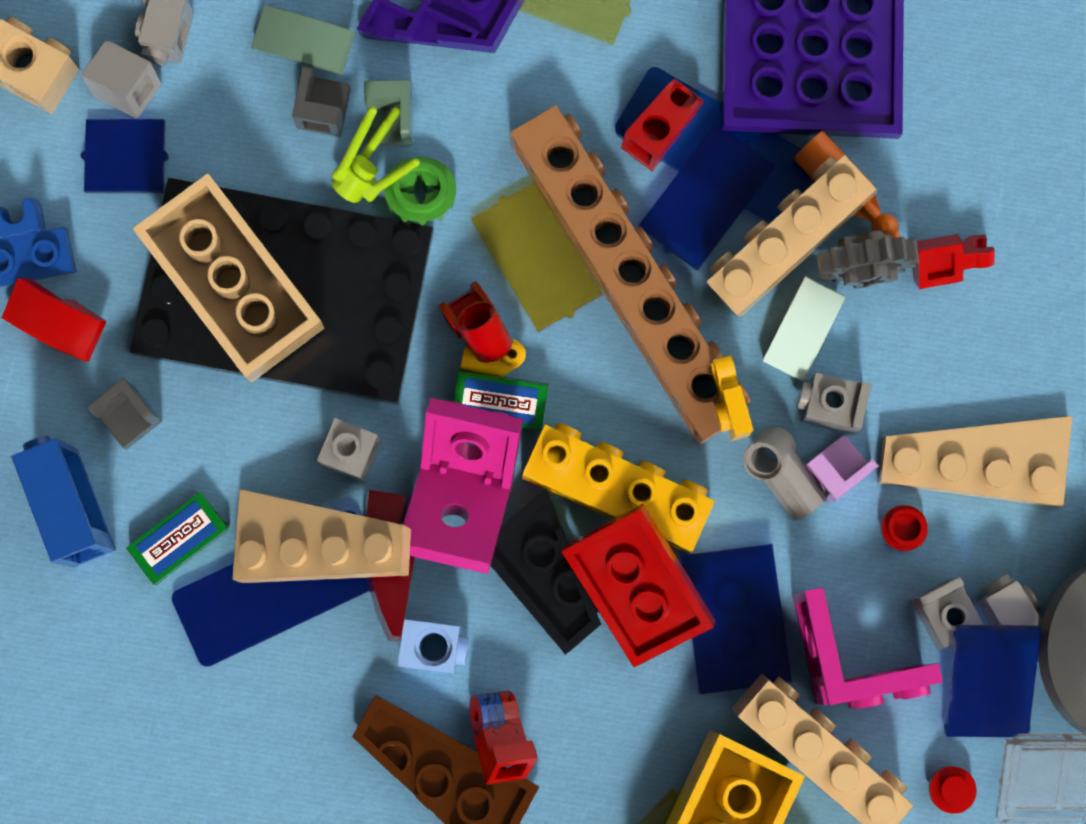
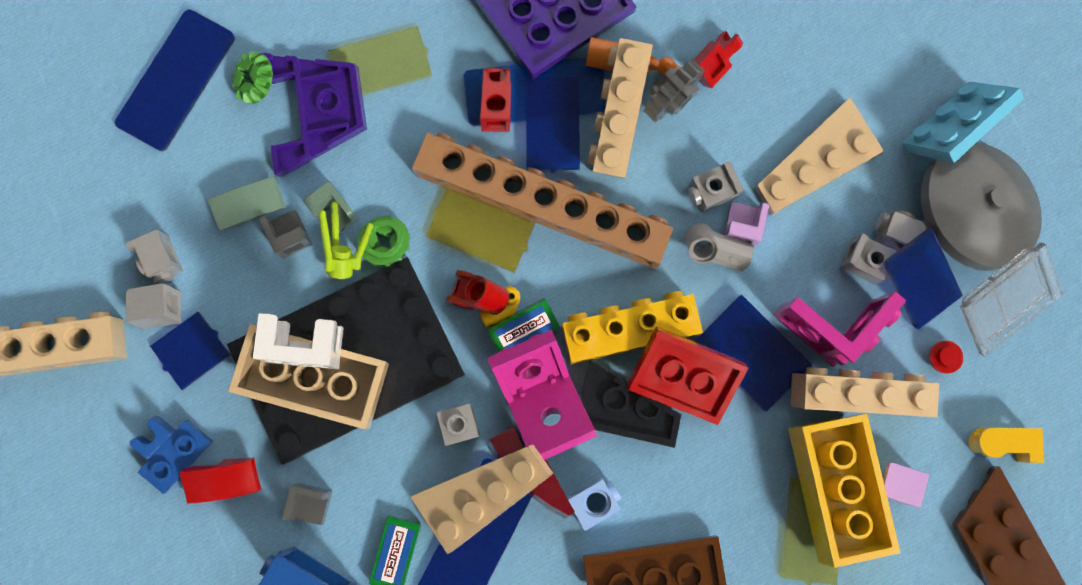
camera: 40 degrees left, 0 degrees up
(215, 216) = (273, 347): none -> white panel
(500, 737) = (674, 525): red leg -> none
(732, 410) = (665, 232): yellow plate -> none
(804, 328) = (665, 158): light aqua slope -> none
(904, 528) = (806, 229): red plate -> none

